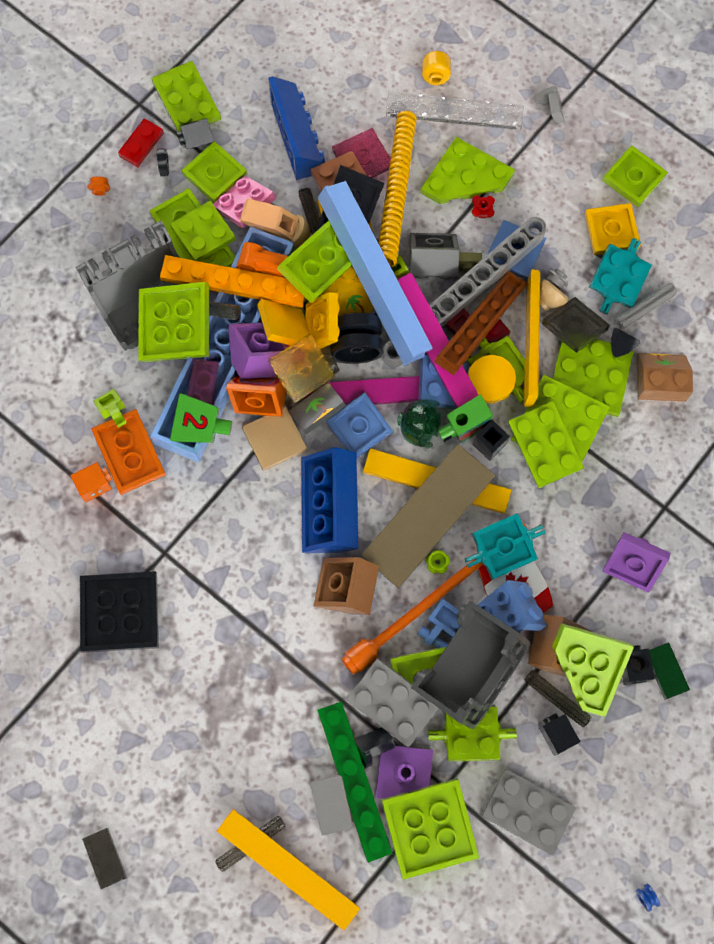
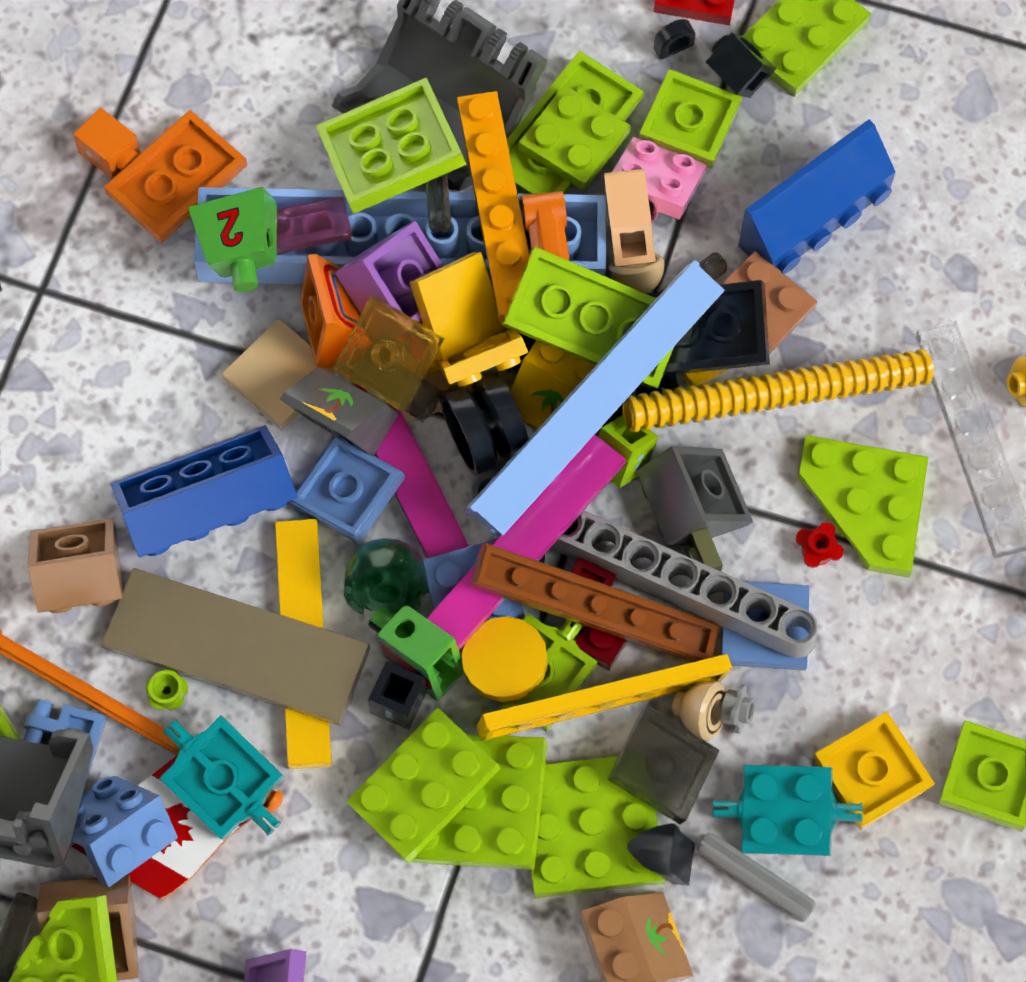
camera: 70 degrees right, 5 degrees down
(110, 405) = (236, 121): lime plate -> none
(368, 152) = (833, 329): clear pink tile -> none

